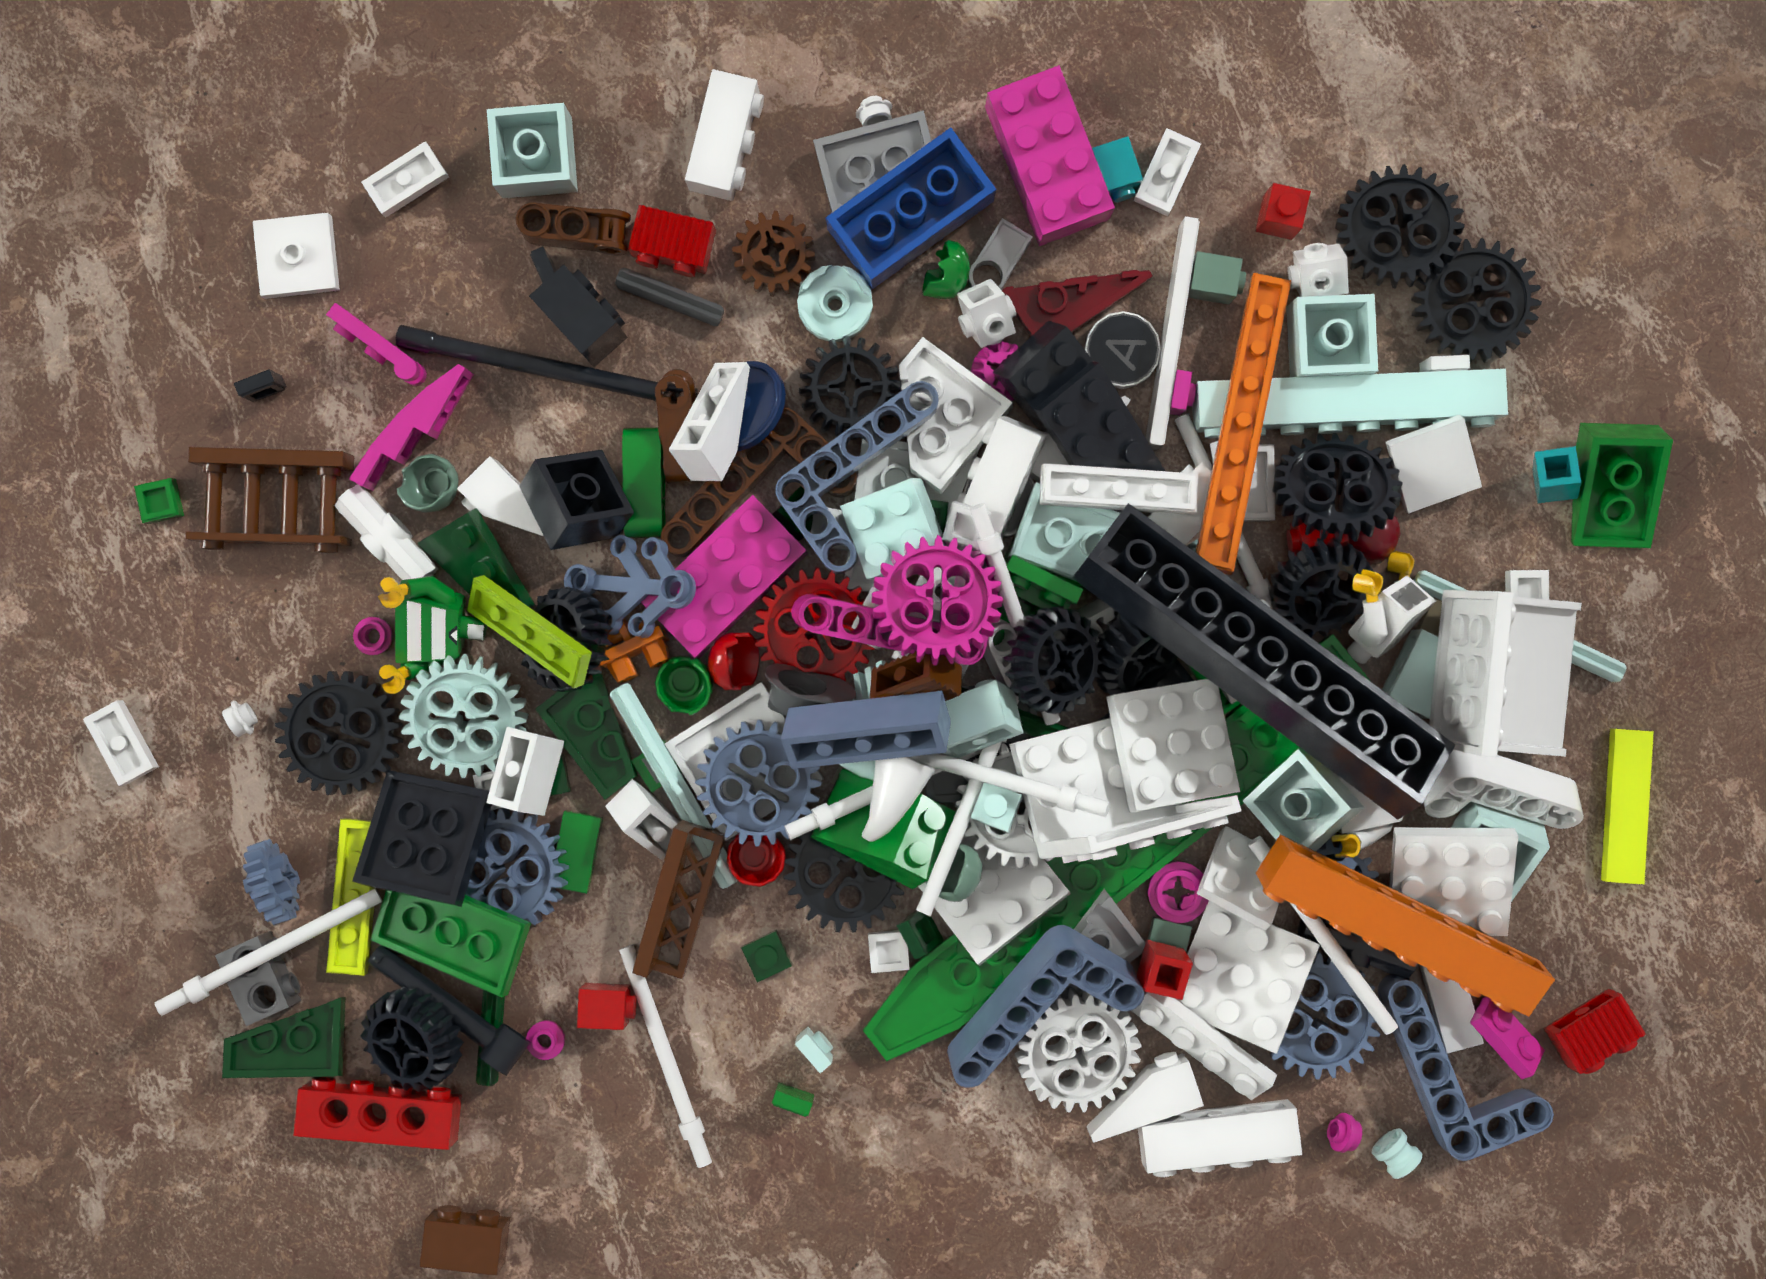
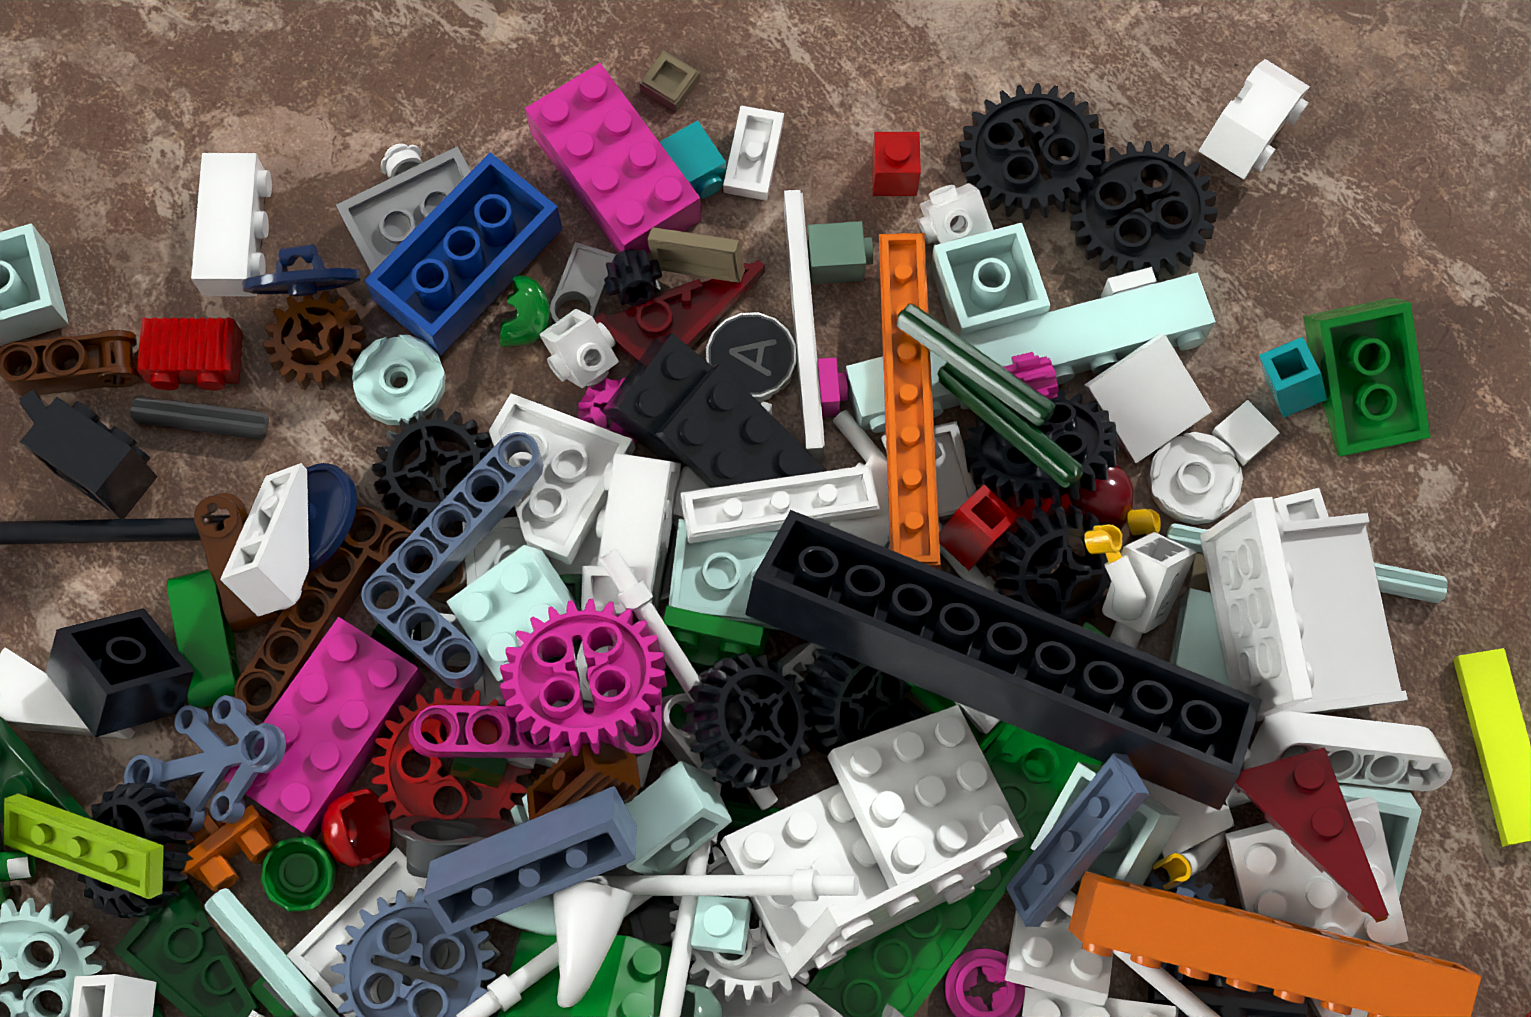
camera: 15 degrees left, 15 degrees down
(771, 205) = (300, 281): none -> dark blue shield
(845, 647) = (480, 770): none -> dark green tile
(1043, 262) = (633, 277): none -> black gear
(1099, 256) = (697, 254): none -> dark tan tile
(1111, 88) = (669, 81): none -> dark tan tile
(1269, 541) = (976, 527): none -> red brick
(1283, 811) = (1077, 839): none -> sand blue tile
(1304, 411) = (975, 365): none -> axle
(1318, 466) = (1013, 427): none -> dark green axle
(1343, 432) = (1036, 373): none -> dark pink gear
(1451, 536) = (1195, 478): none -> white tile
(1465, 827) = (1308, 806): none -> dark red wing
(1503, 508) = (1246, 432): none -> white tile
(1594, 242) = (1253, 119): none -> white brick

